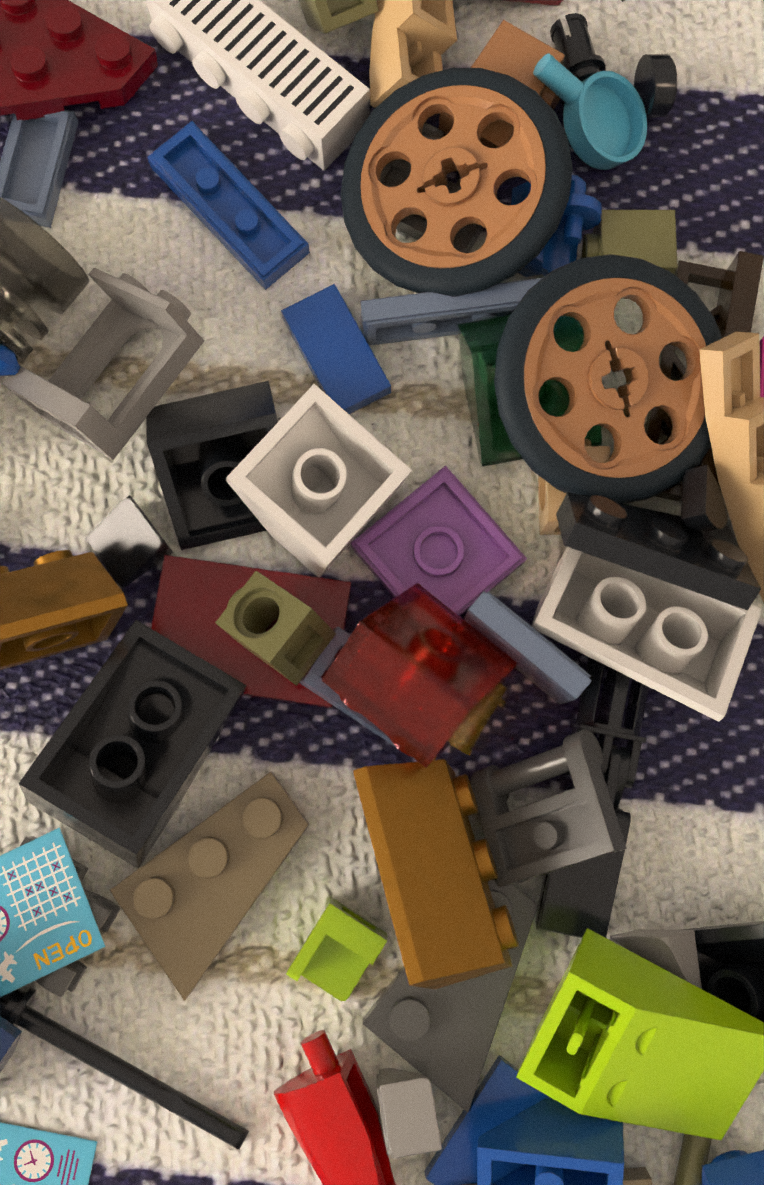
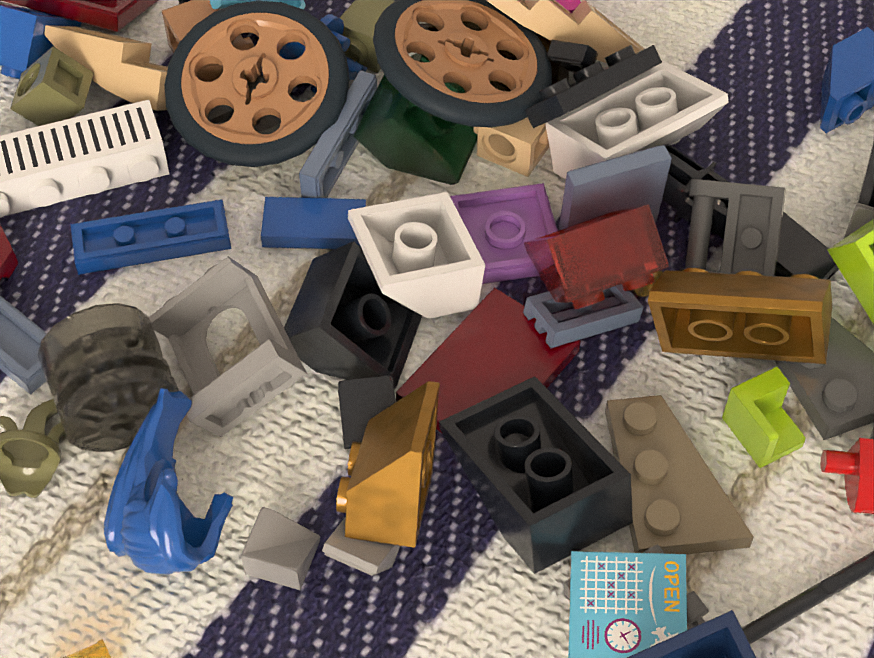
camera: 60 degrees left, 25 degrees down
(294, 639) = (522, 338): olive brick -> none

